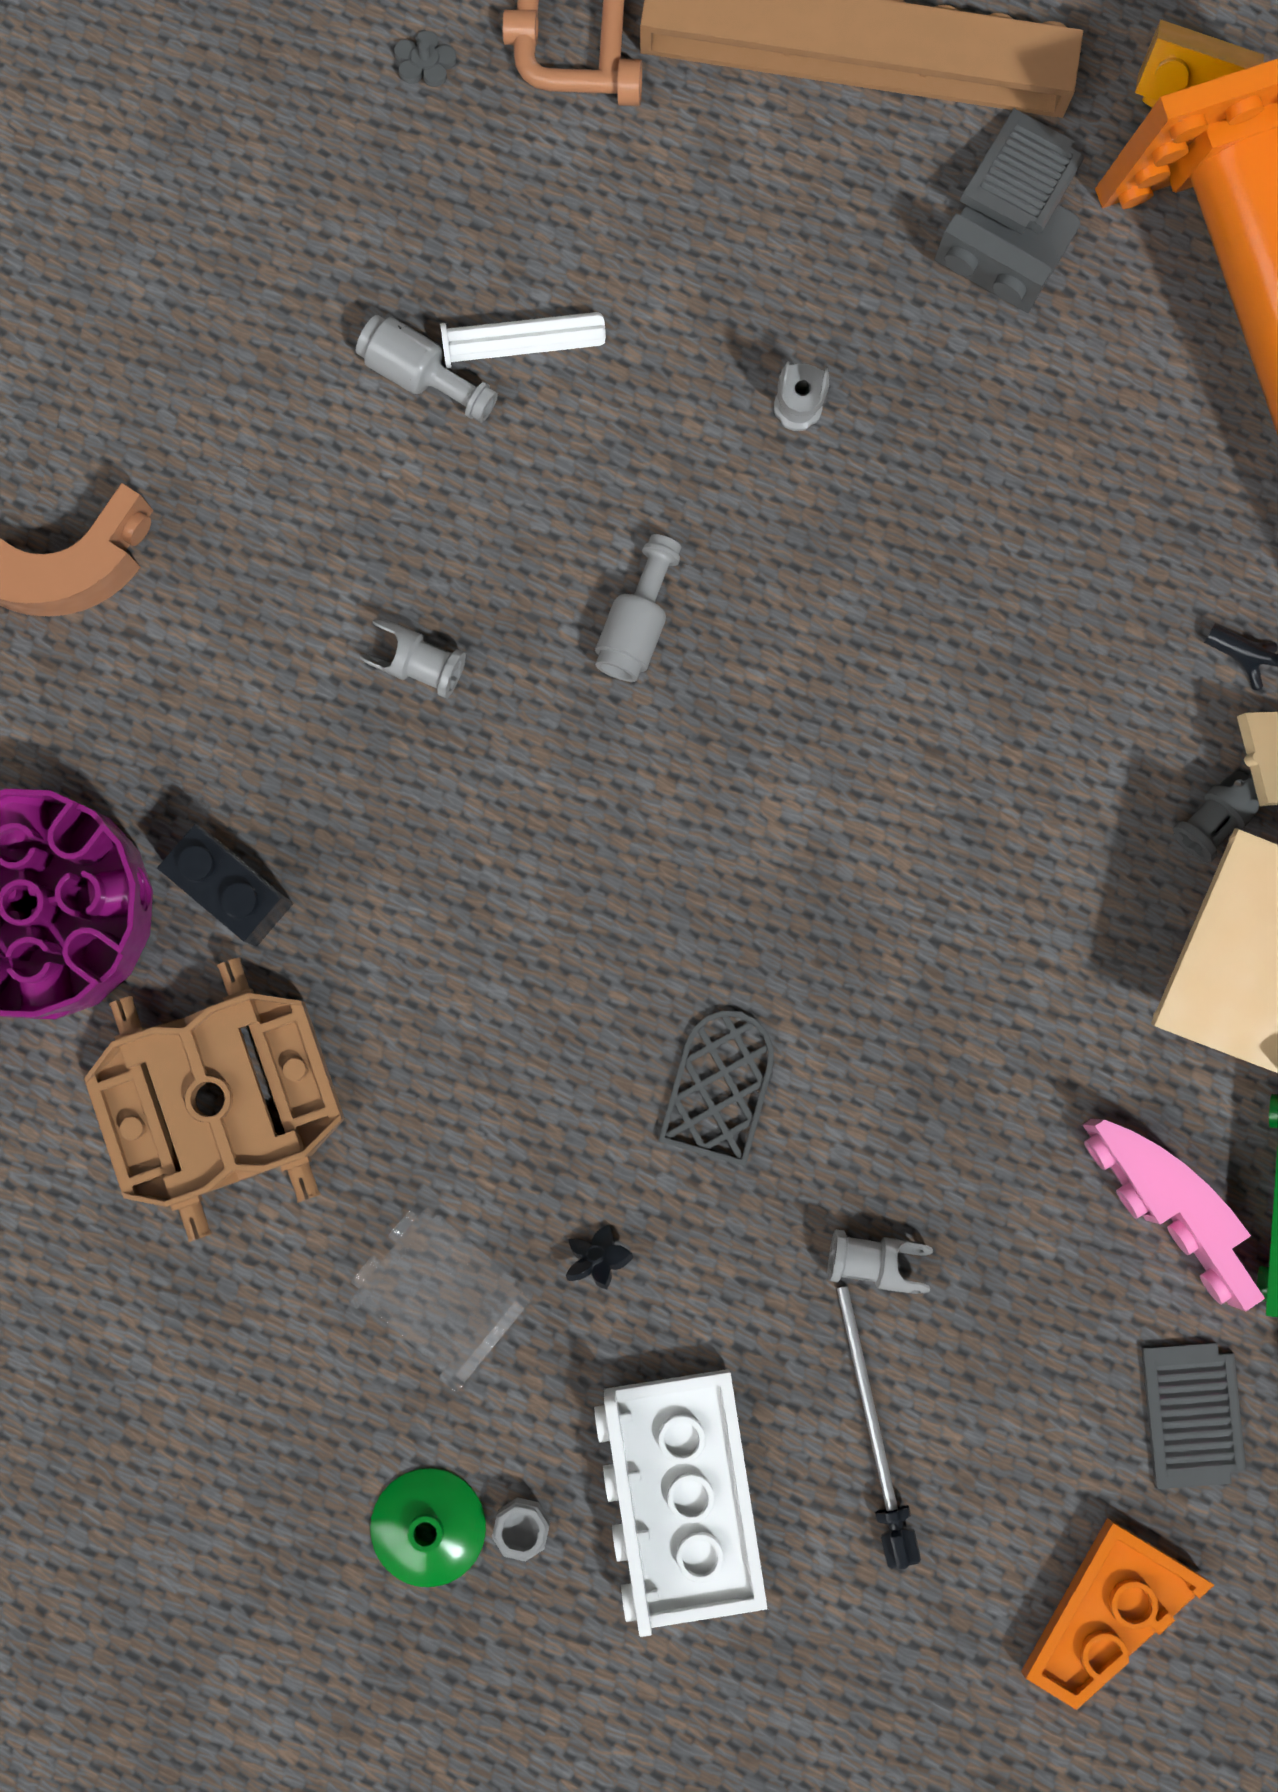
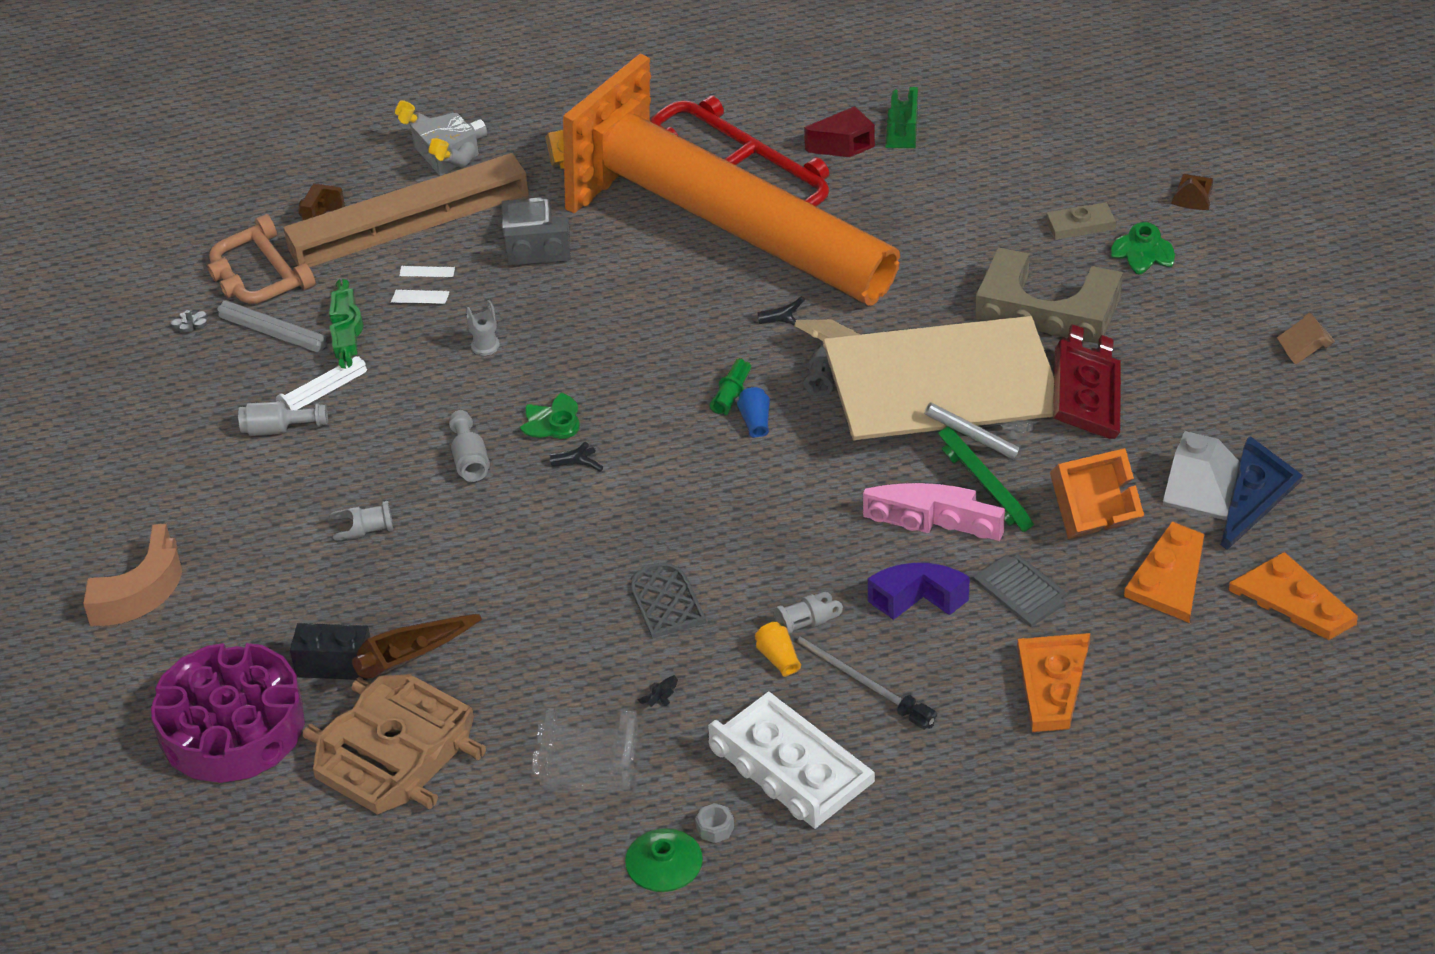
camera: 30 degrees left, 40 degrees down
(311, 964) = (407, 643): none -> reddish brown piece
(527, 156) = (272, 326): none -> light grey axle
(614, 251) = (346, 323): none -> green piece
(770, 234) = (421, 296): none -> white sticker
(774, 734) = (576, 456): none -> black bar
(789, 626) = (554, 421): none -> green plate
(798, 1295) = (777, 647): none -> light orange cone
(1026, 1316) = (905, 584): none -> dark purple brick
(1070, 830) = (754, 409): none -> blue cone
(1073, 753) = (730, 387): none -> green axle

